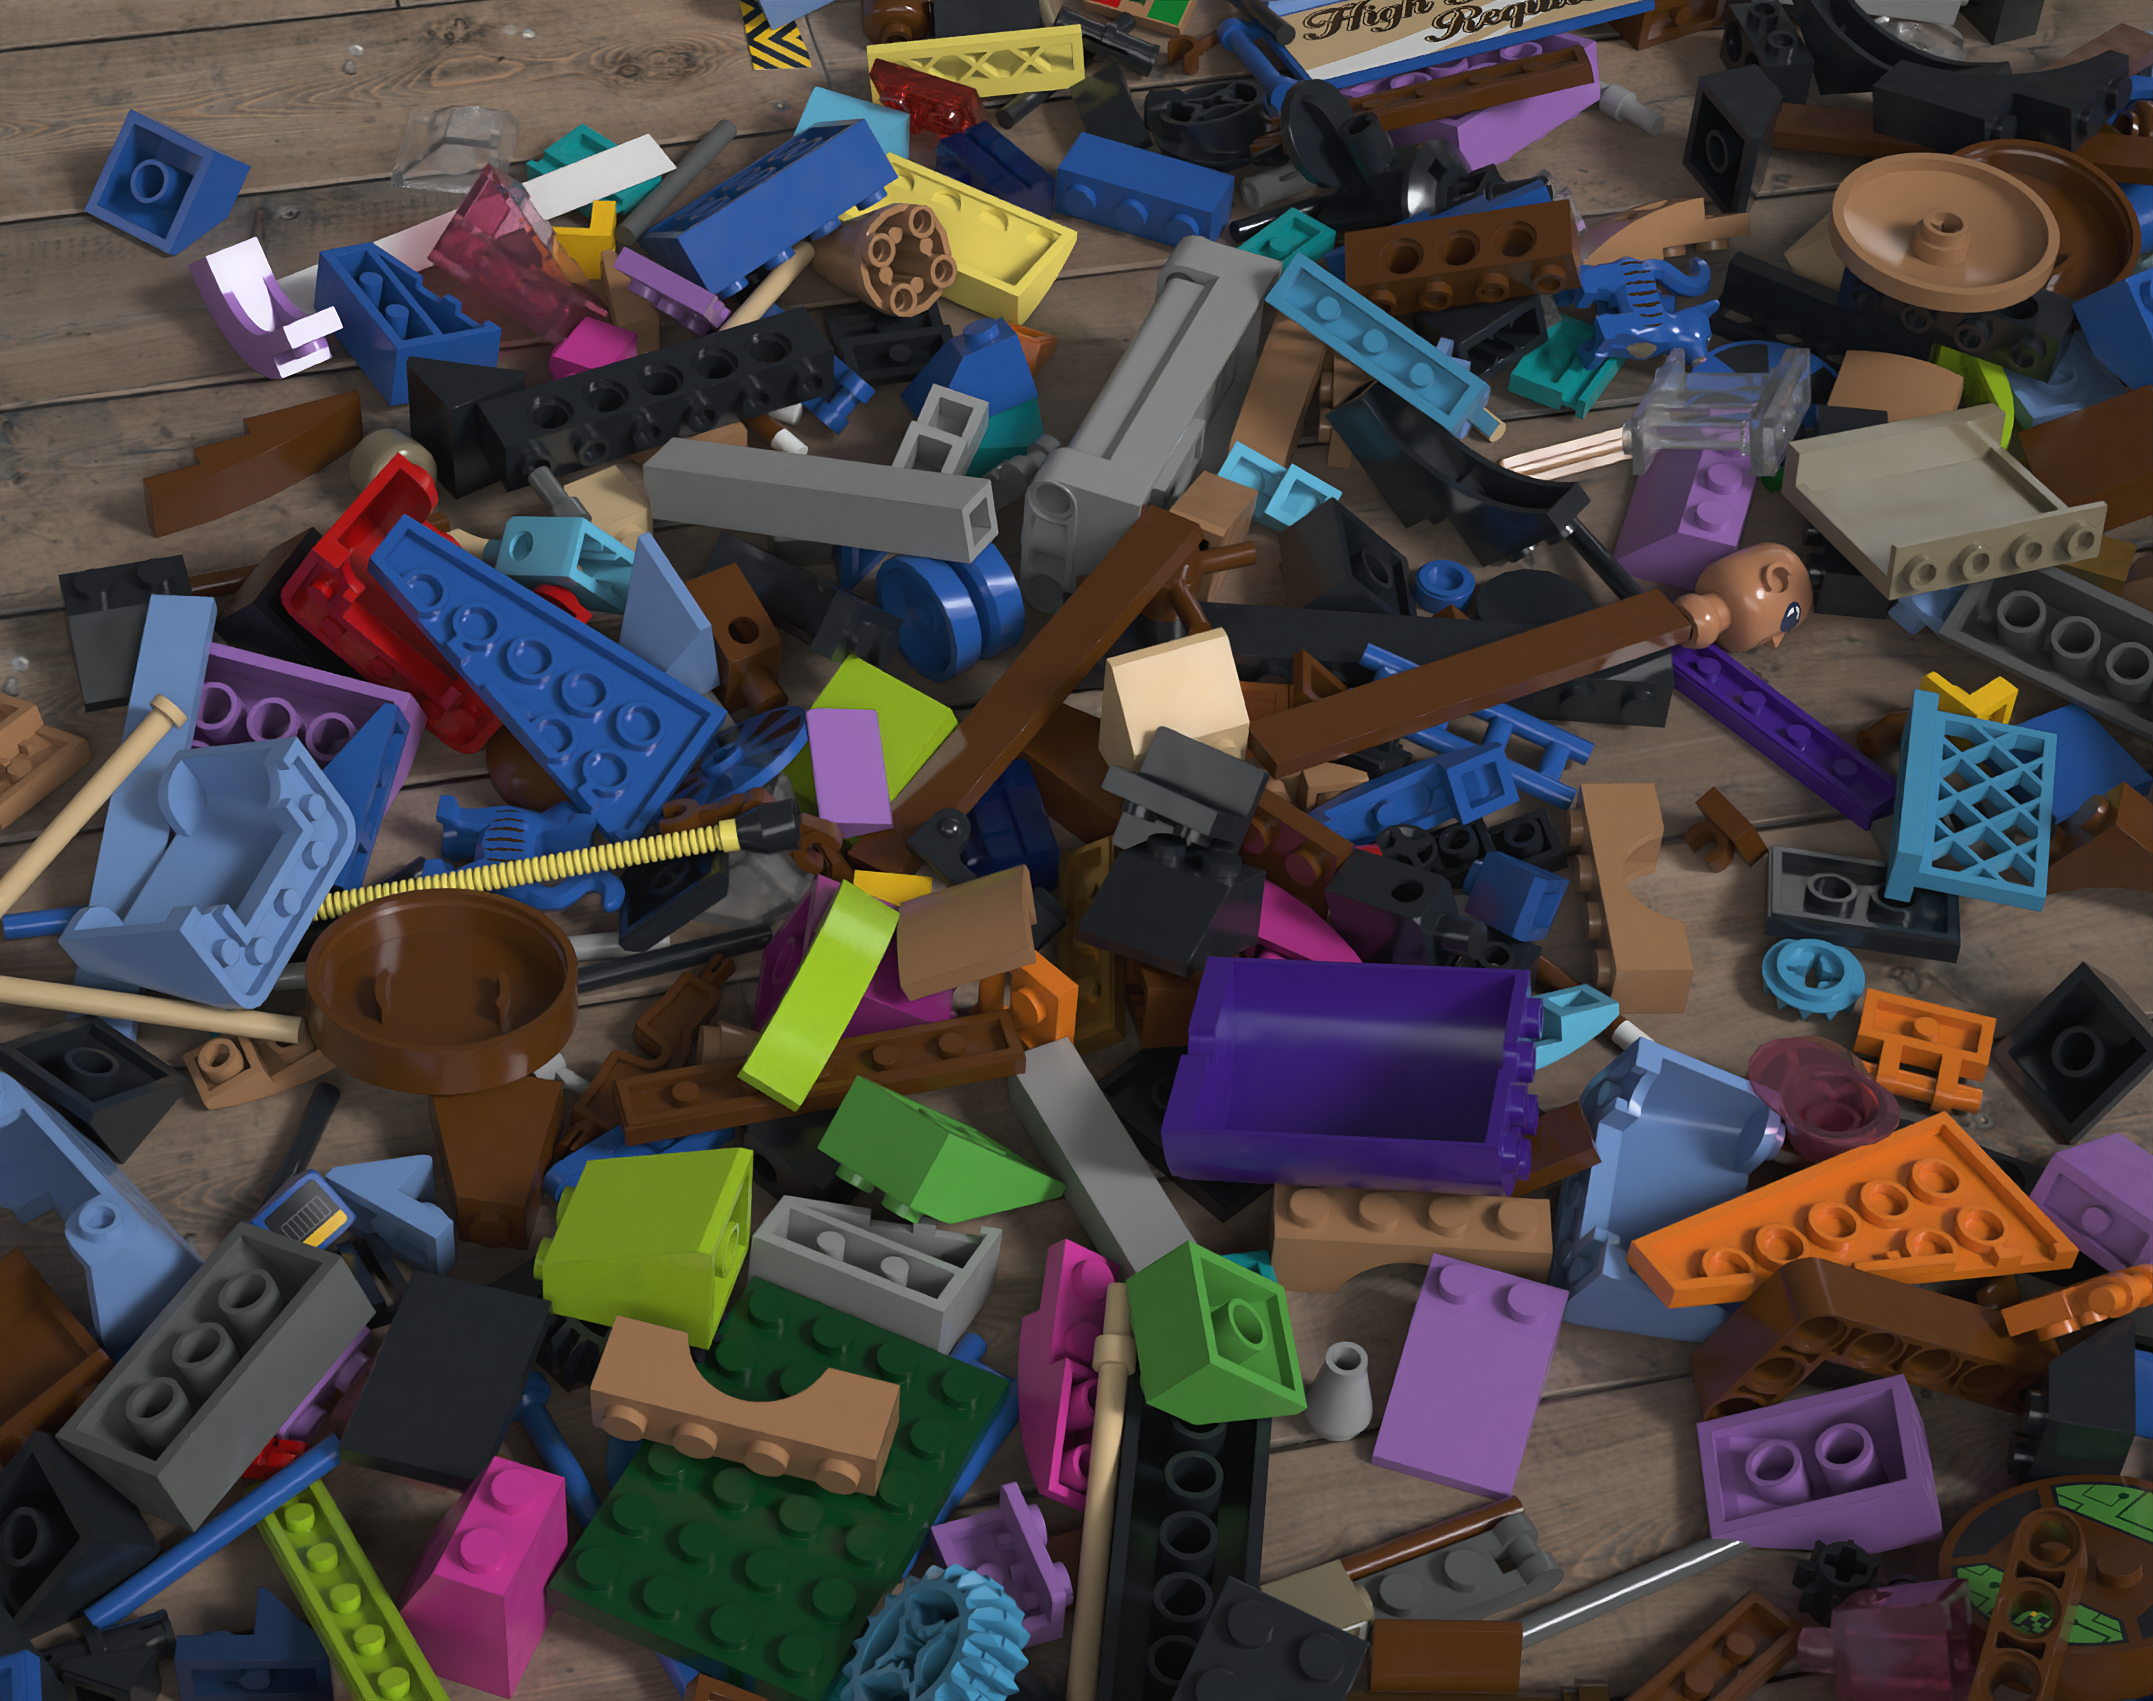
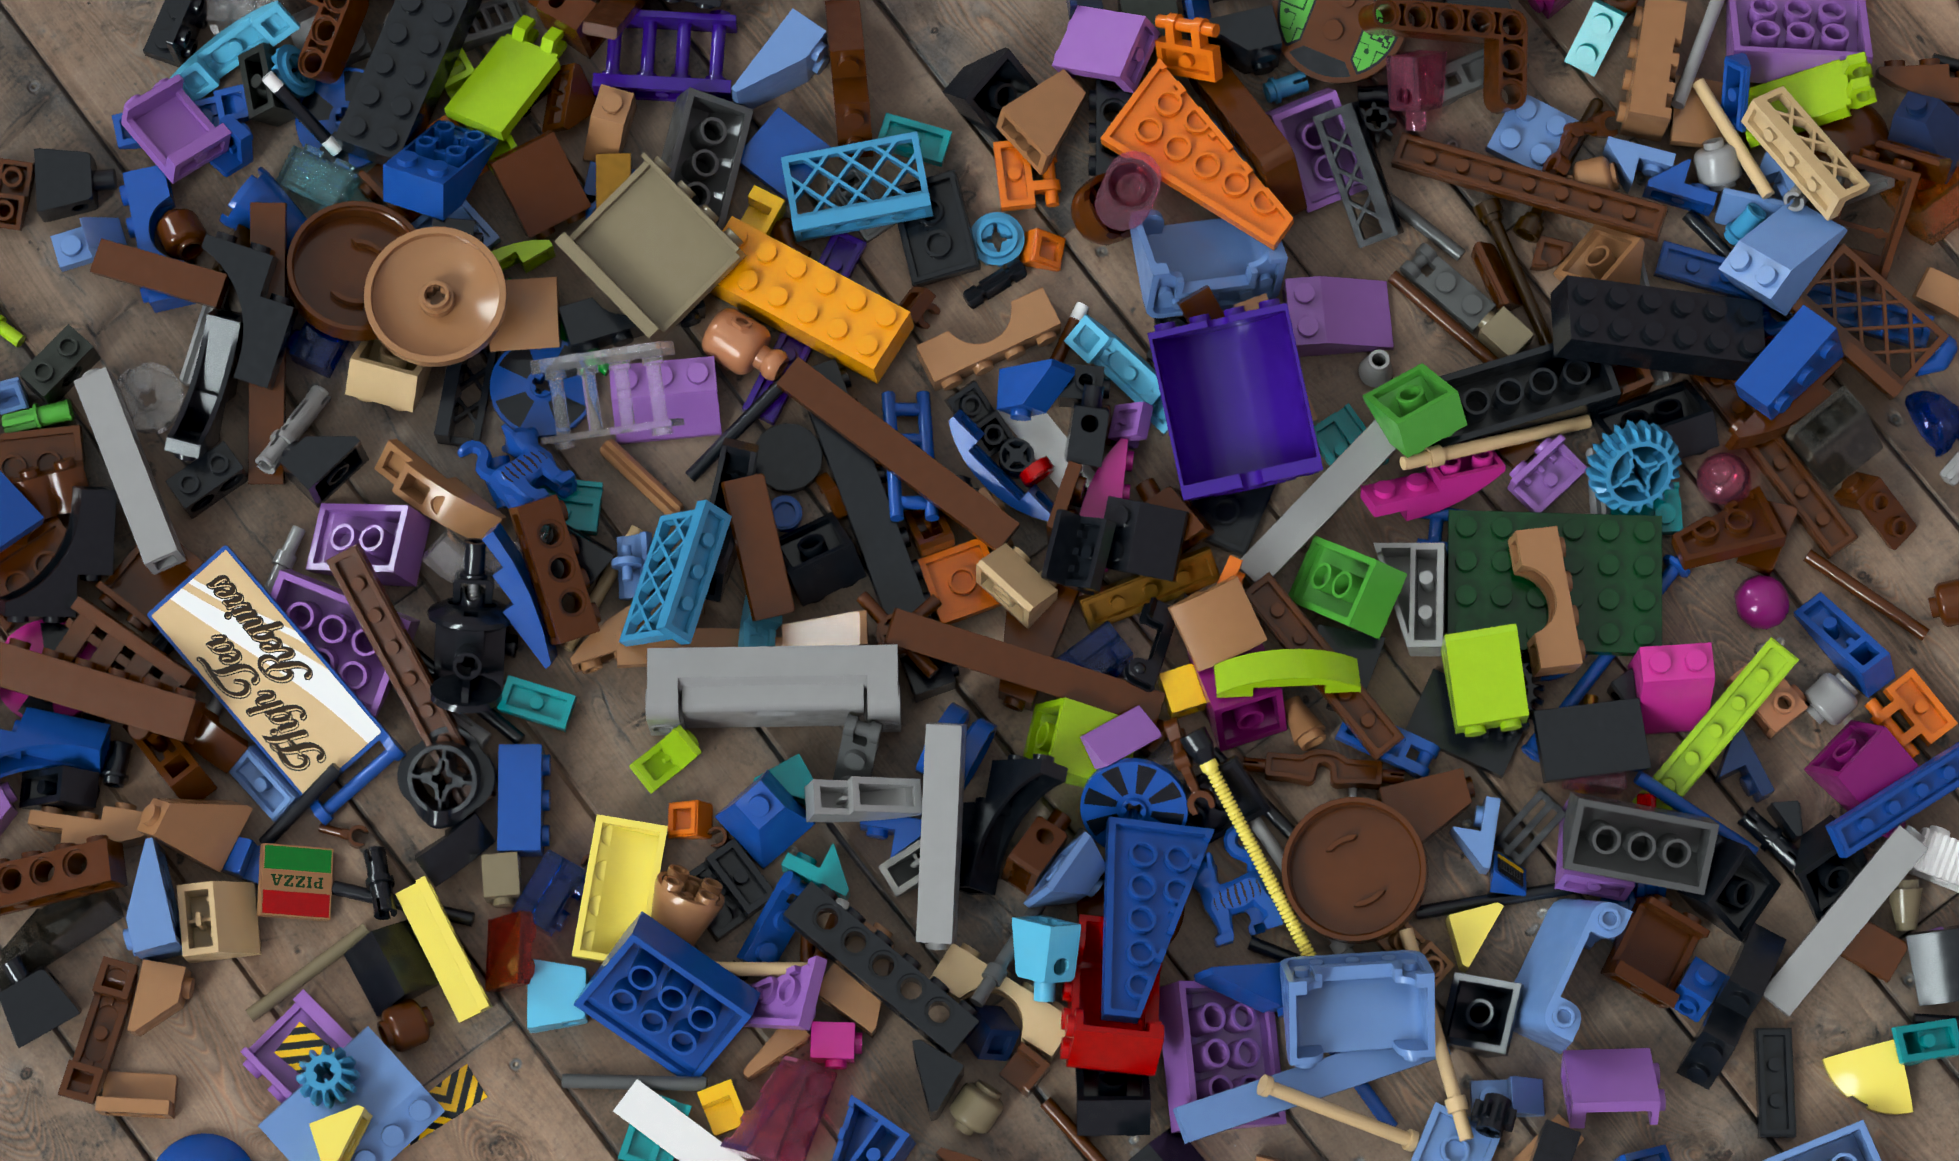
camera: 110 degrees left, 30 degrees up
(238, 1129) = (1469, 930): none -> light yellow slope
(486, 509) = (994, 1035): none -> dark blue panel
(855, 426) = (829, 873): none -> teal slope
(1044, 134) = (502, 878): none -> dark tan brick
(1113, 324) = (666, 758): none -> lime bracket
(1396, 480) = (758, 547): none -> reddish brown slope
(1602, 166) = (388, 534): none -> medium lavender slope
(1731, 950) = (994, 283): none -> black axle
(1739, 1503) = (1371, 171): none -> black fence
(1762, 1022) = (1042, 250): none -> orange slope
(1783, 687) = (814, 304): none -> light orange brick
(1807, 138) = (293, 428): none -> light grey pin
(1967, 1467) = (1284, 87): none -> dark azure pin
(2010, 1077) = (1042, 118): none -> medium nougat slope
(2032, 941) = (932, 139): none -> teal plate

